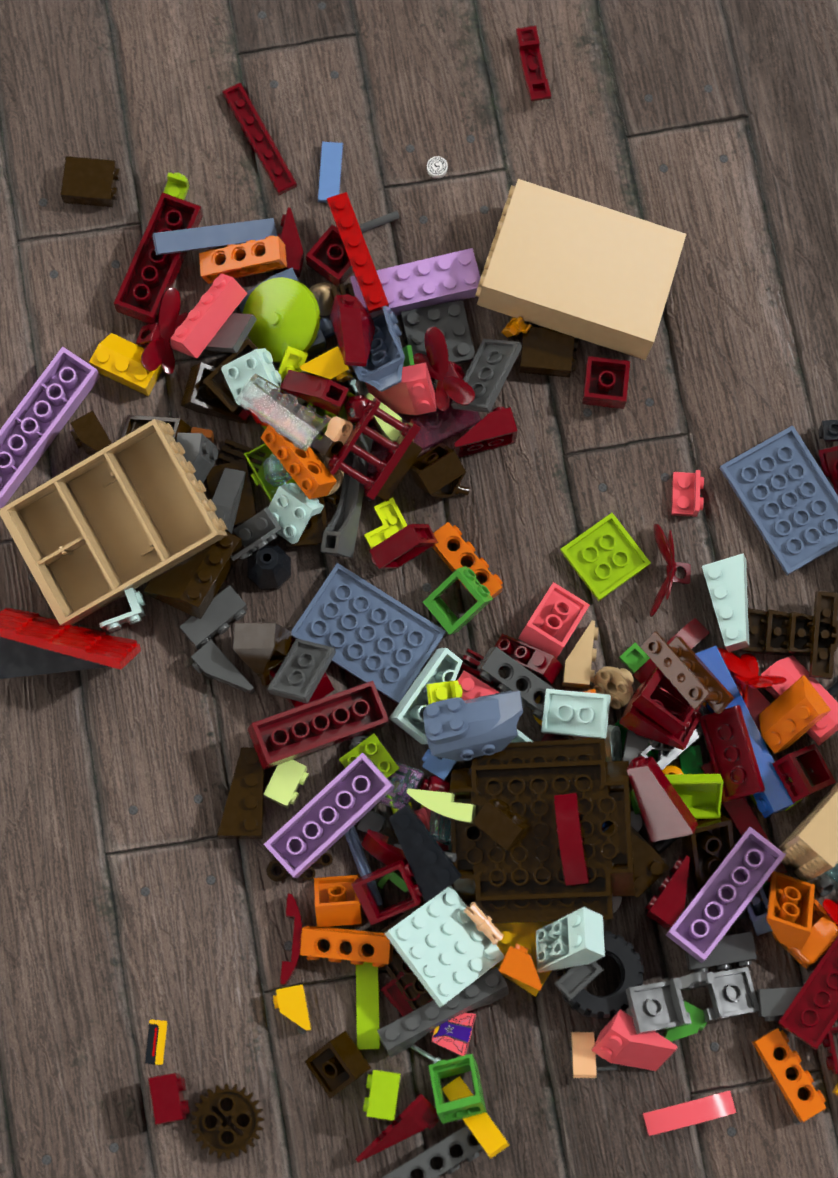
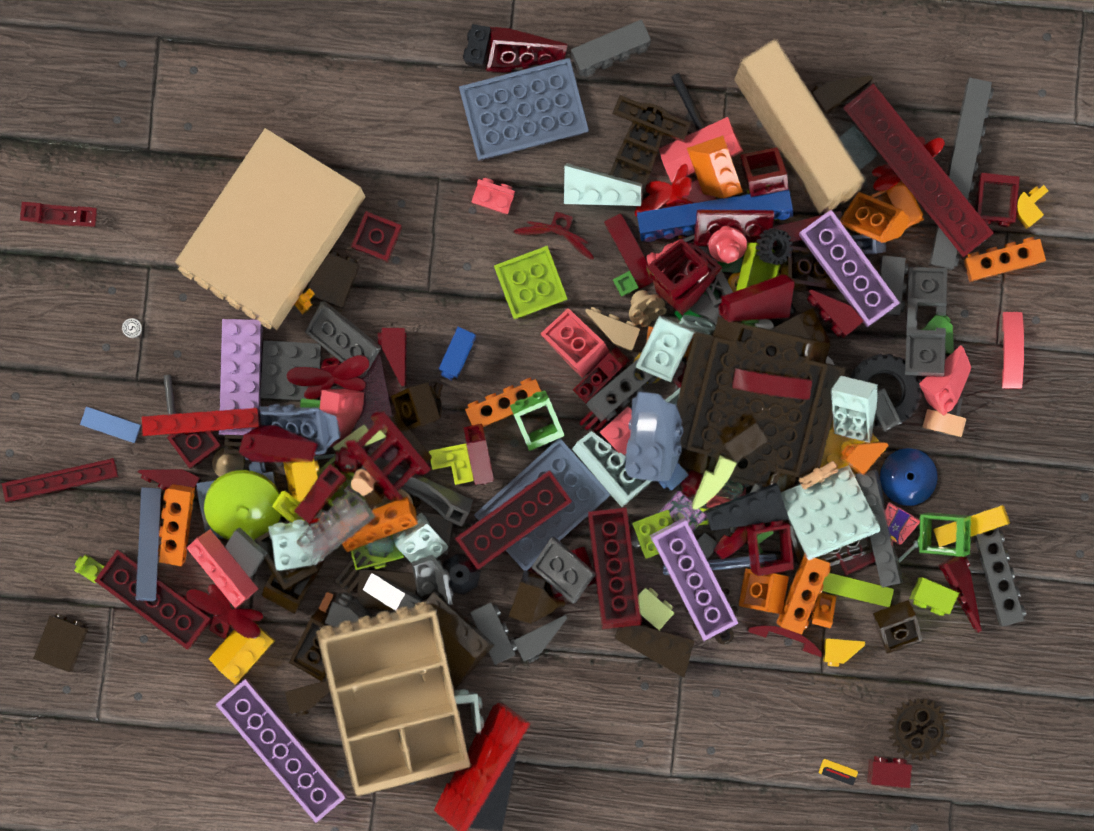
camera: 75 degrees left, 10 degrees up
(334, 974) = (824, 610): none -> orange slope
(342, 602) = (513, 520): none -> dark red brick
(443, 691) = (616, 454): neon yellow bracket -> none
(494, 1034) = (894, 477): none -> blue dish
(505, 497) = (457, 353): none -> blue window
(687, 672) = (658, 245): reddish brown fence -> none
(711, 751) = (727, 244): none -> coral plate
(726, 814) = (782, 250): none -> black tyre

